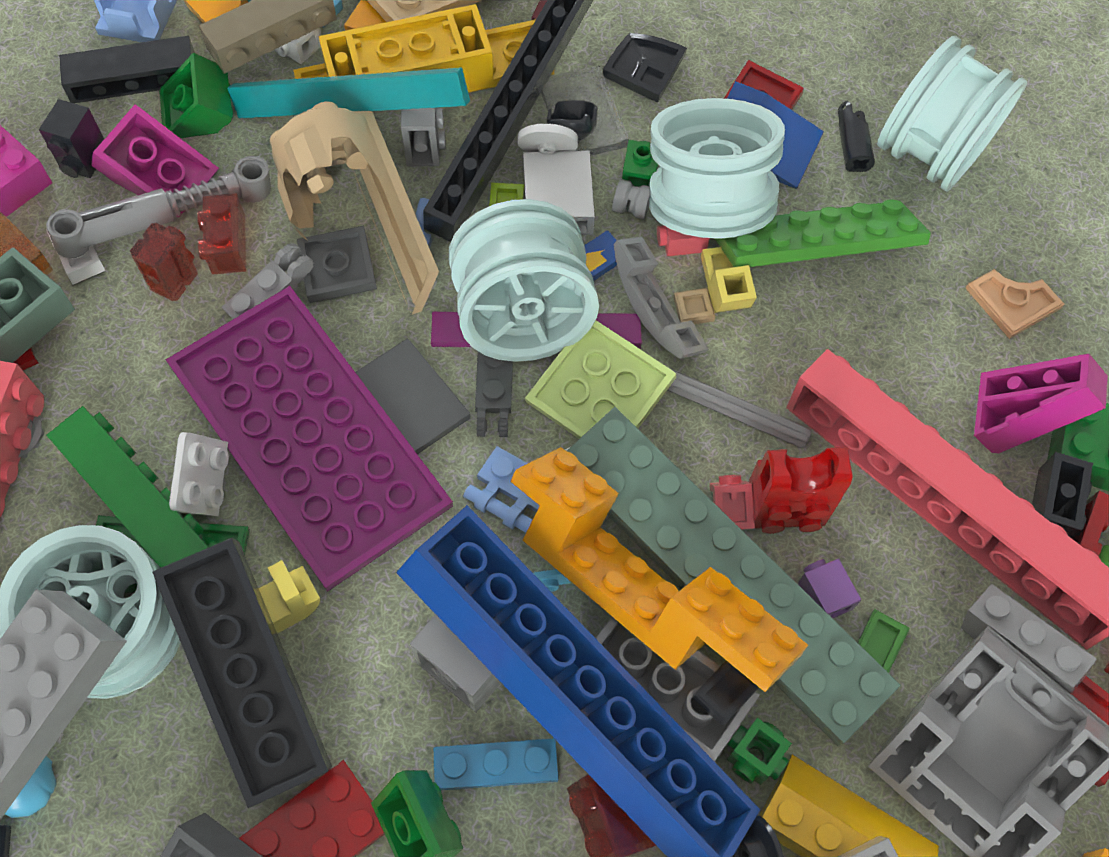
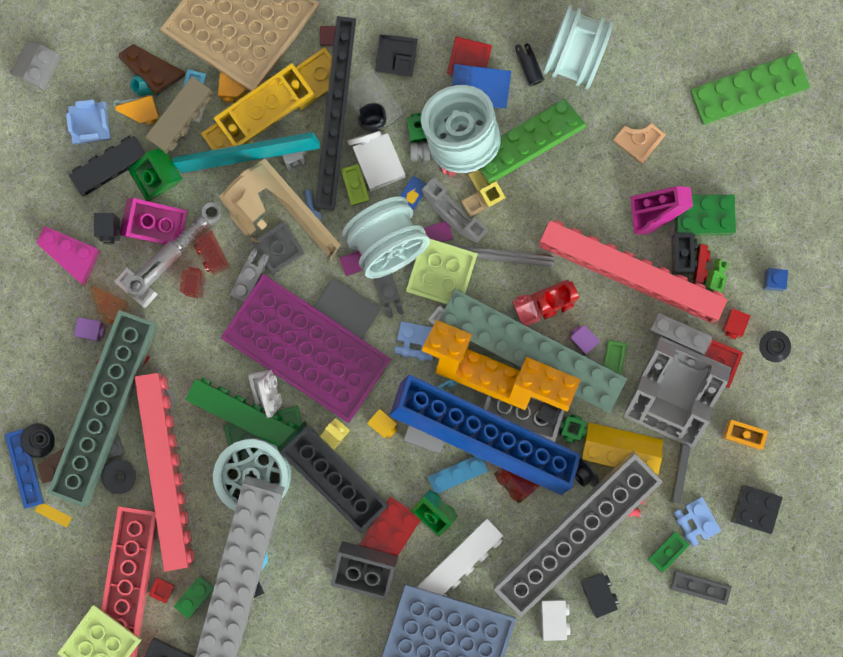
camera: 20 degrees left, 20 degrees up
(387, 613) = (383, 424): none -> yellow brick

